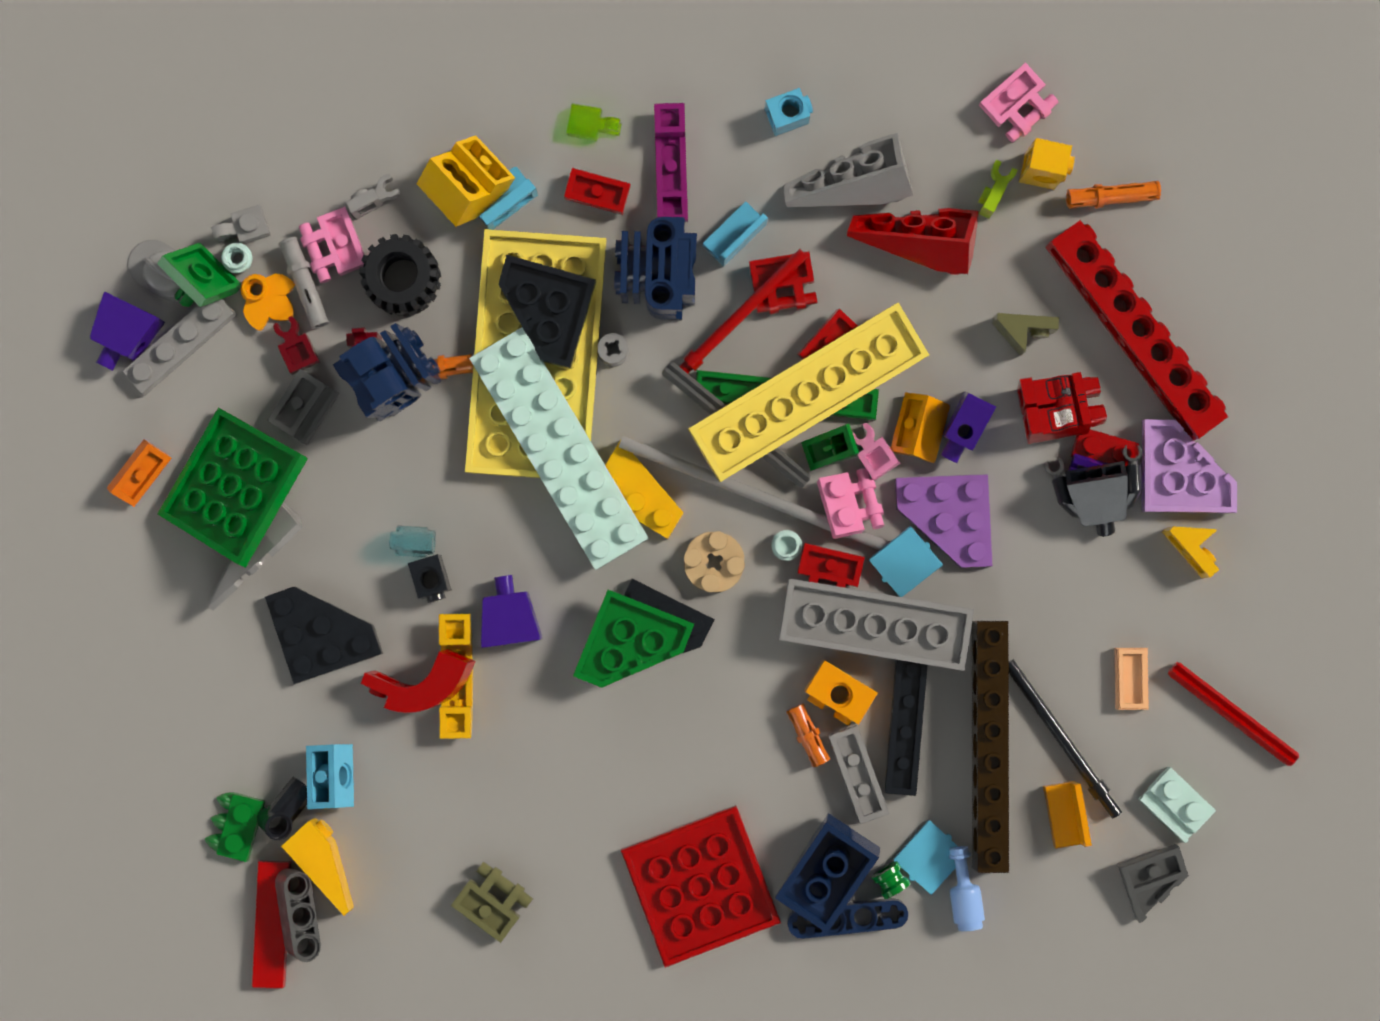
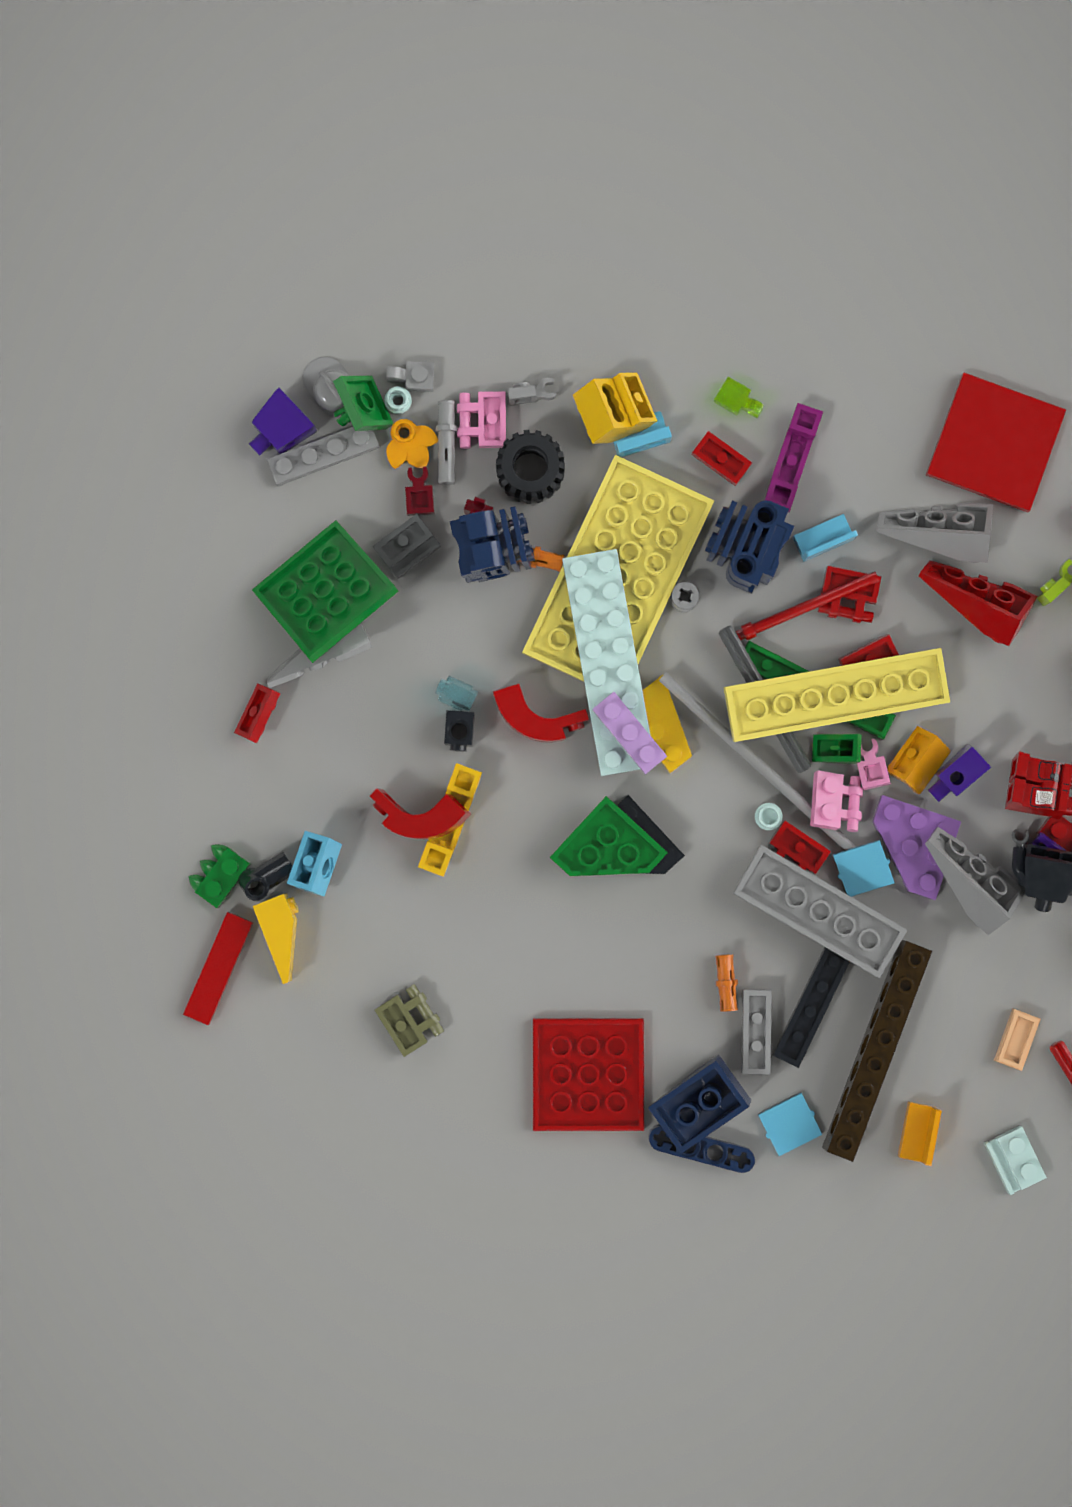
camera: 20 degrees right, 0 degrees up
(138, 473) = (249, 549): orange plate -> none
(211, 641) = (257, 713): none -> red plate
(307, 926) = (247, 981): dark grey beam -> none
(318, 634) = (347, 742): black plate -> none
(485, 539) = (530, 725): none -> red arch
(508, 616) = (512, 786): dark purple torso -> none
(548, 306) = (644, 540): black plate -> none
(607, 514) = (629, 733): none -> lavender plate
(716, 544) = (694, 821): tan plate -> none
(778, 120) = (896, 453): medium azure brick -> none
(858, 694) = (782, 964): light orange brick -> none
(875, 67) = (996, 442): none -> red tile
(890, 880) = (750, 1130): green wheel -> none
(965, 896) = (808, 1169): light blue piece -> none
(1015, 328) = (1032, 706): olive slope -> none
(1038, 538) = (984, 892): none -> light grey wedge
(1097, 788) = (953, 1120): black bar -> none
(1152, 878) = (971, 1213): dark grey wing -> none

